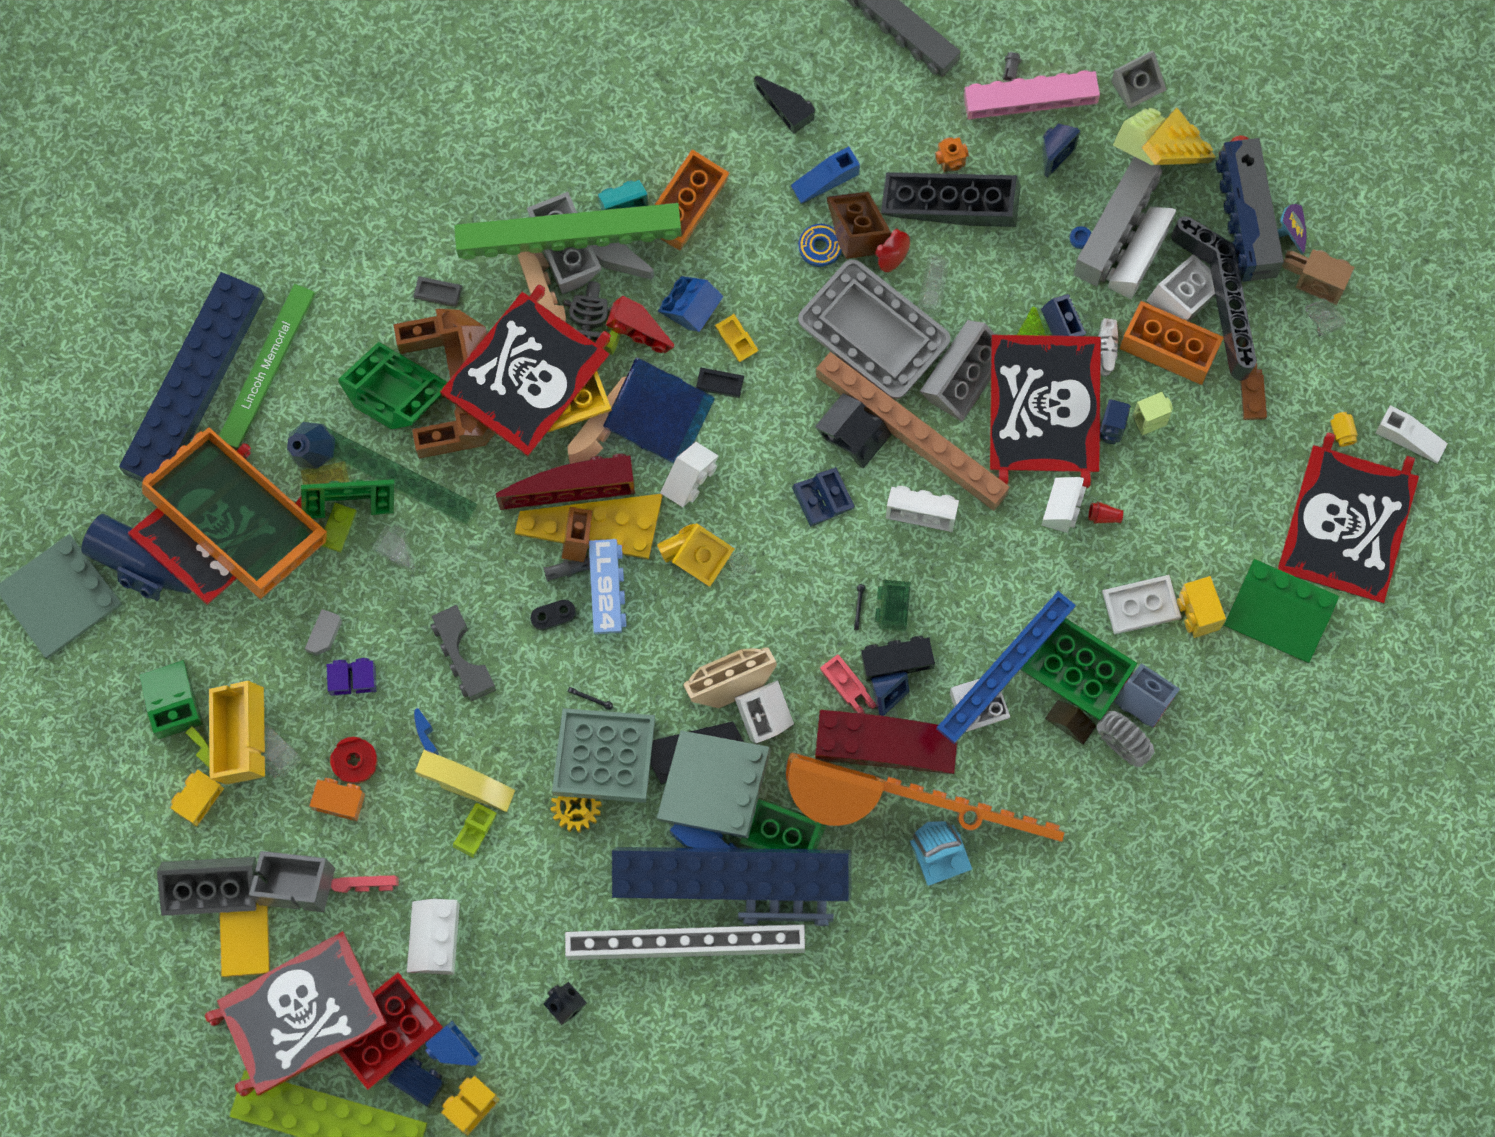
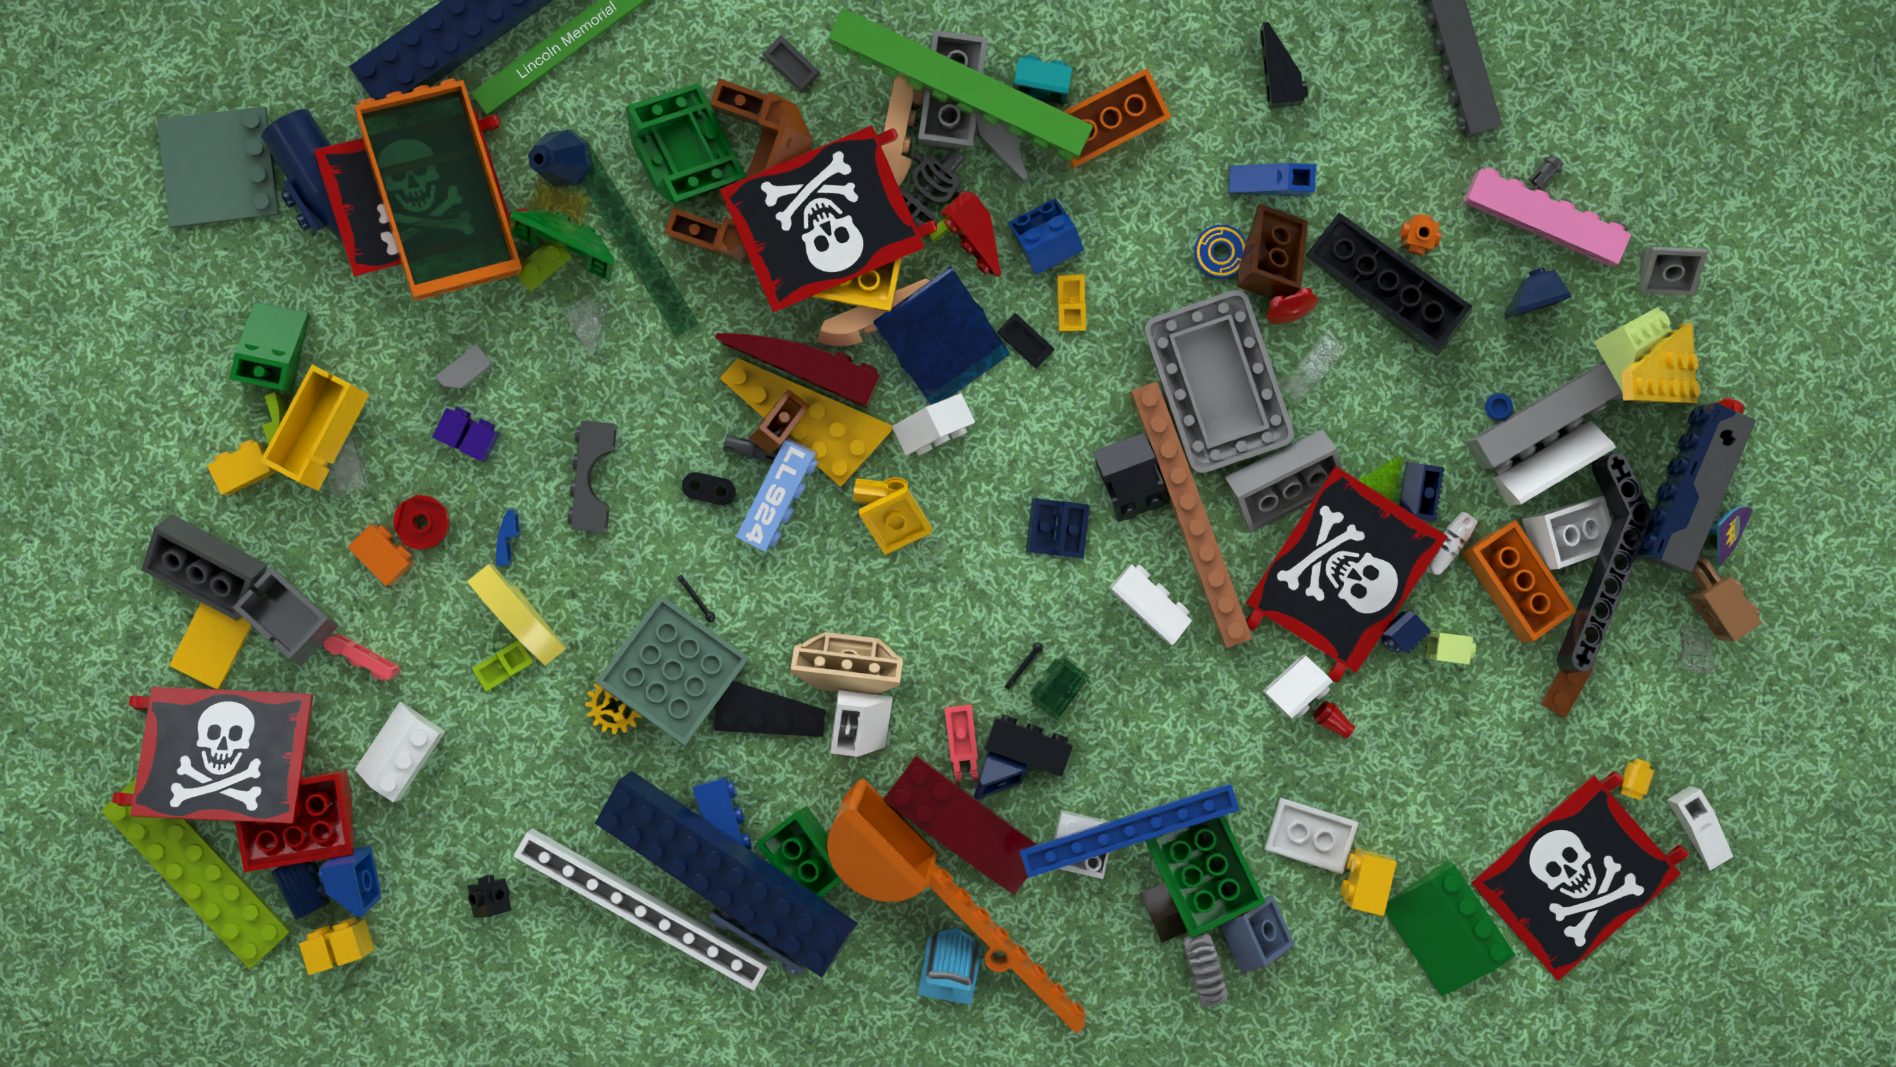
camera: 25 degrees right, 15 degrees up
(714, 784) = (763, 770): sand green plate -> none

